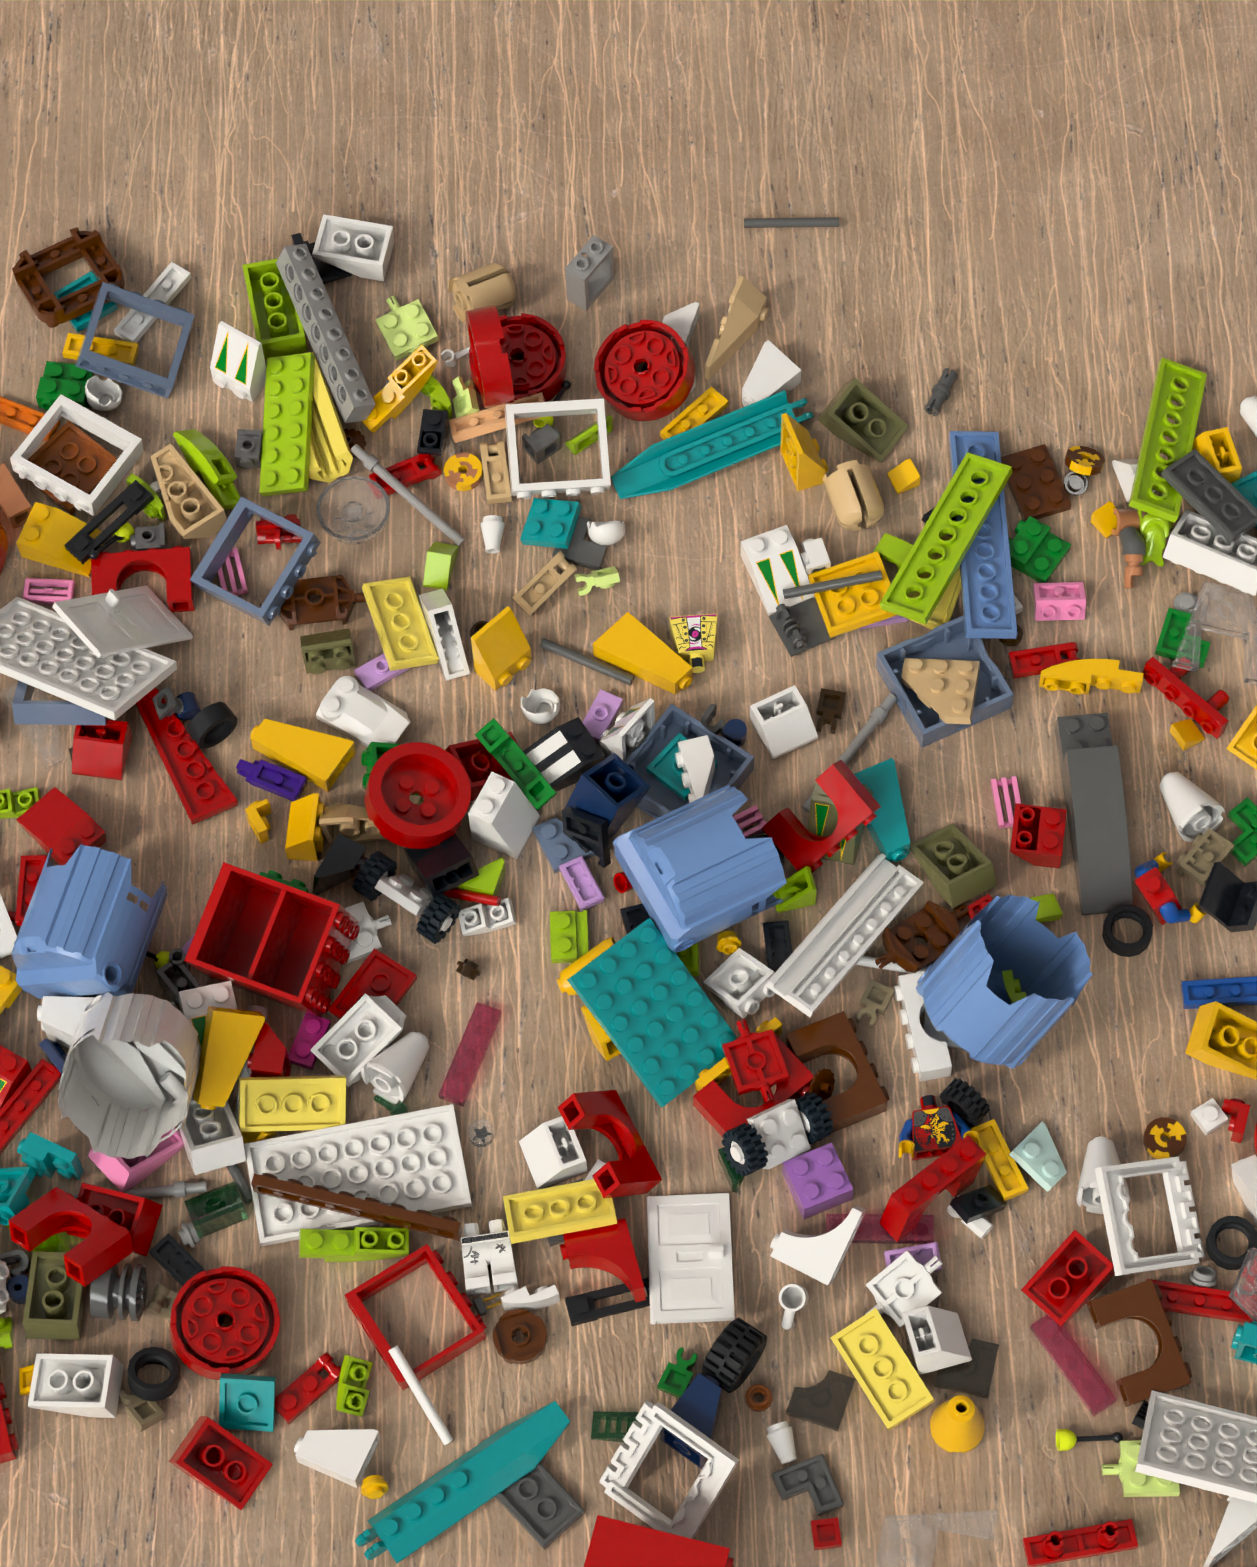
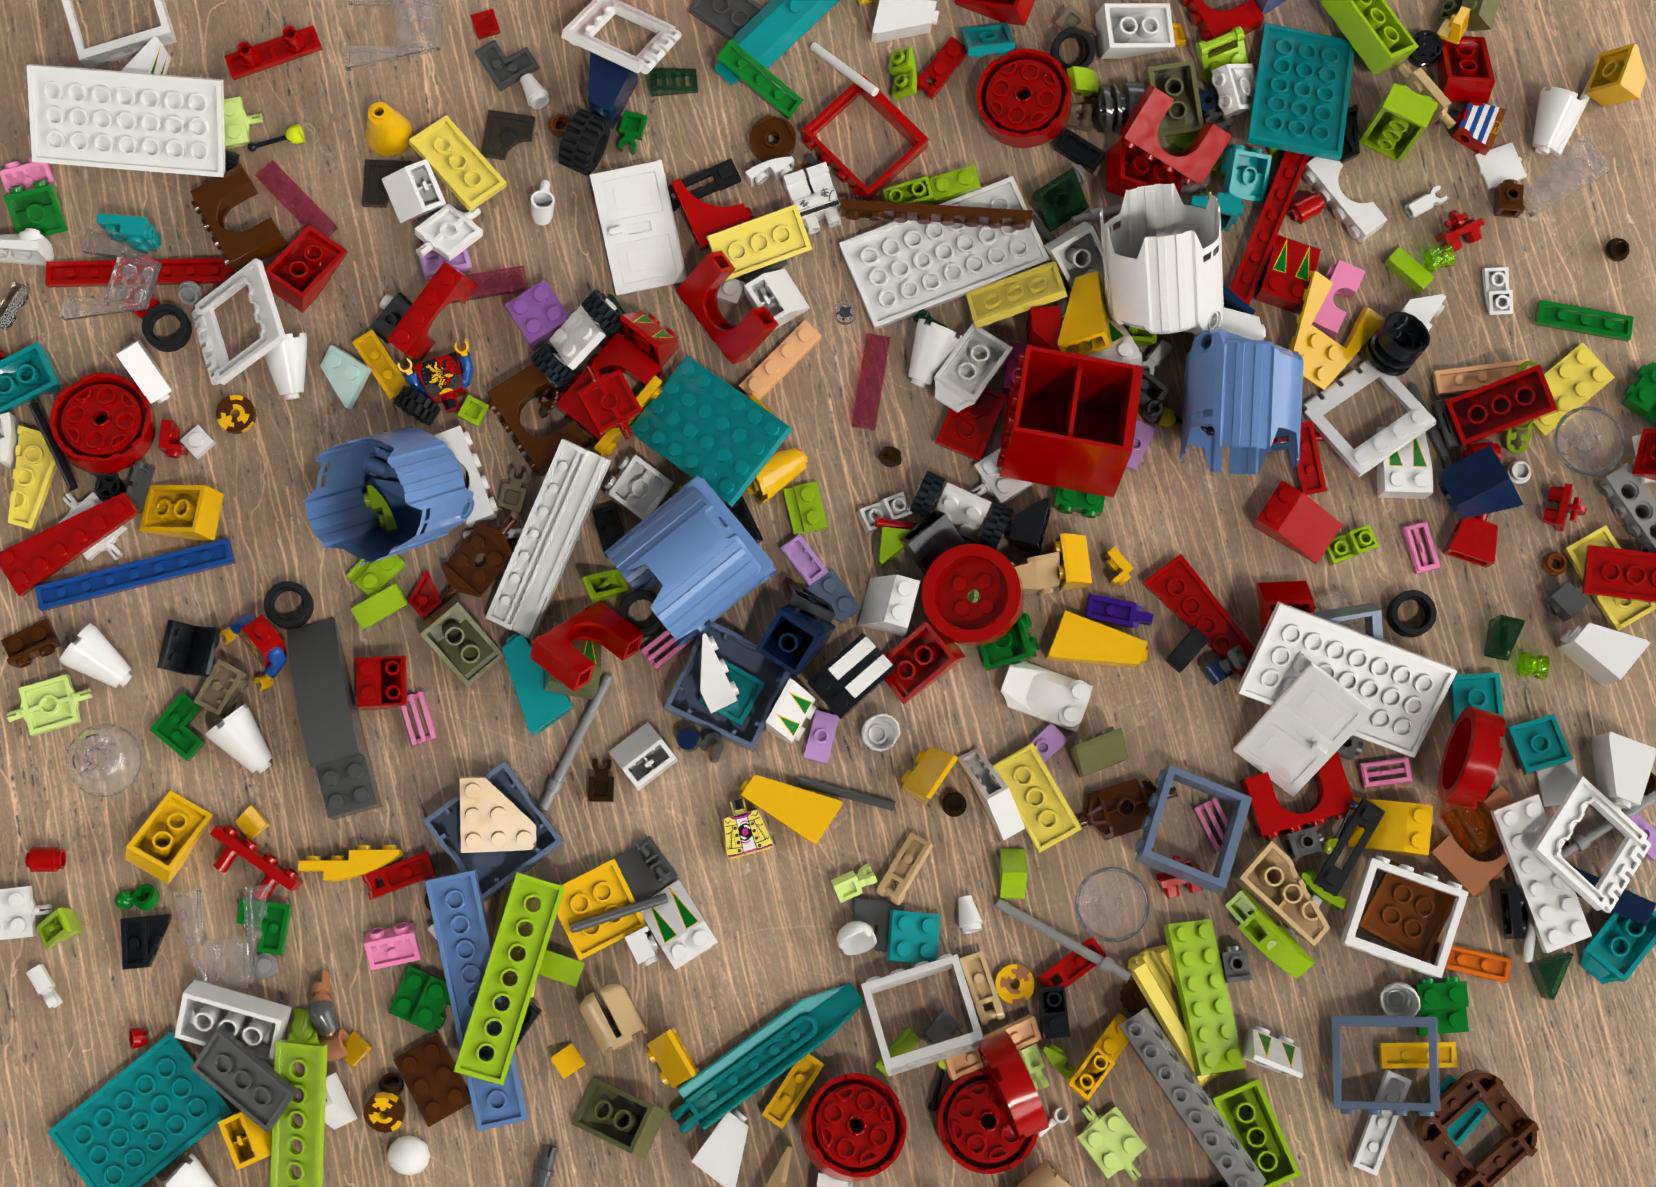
camera: 160 degrees right, 15 degrees up
(151, 1329) = (1083, 81): none -> lime slope
(516, 763) = (885, 657): green slope -> none
(520, 1398) = (759, 79): none -> green plate
(545, 1102) = (781, 360): none -> light nougat plate
(698, 1126) = (649, 337): none -> red slope
(821, 1253) = (528, 248): white arch -> none
(905, 1094) = (473, 411): none -> lime plate
(1067, 425) = (408, 1155): none -> white hair

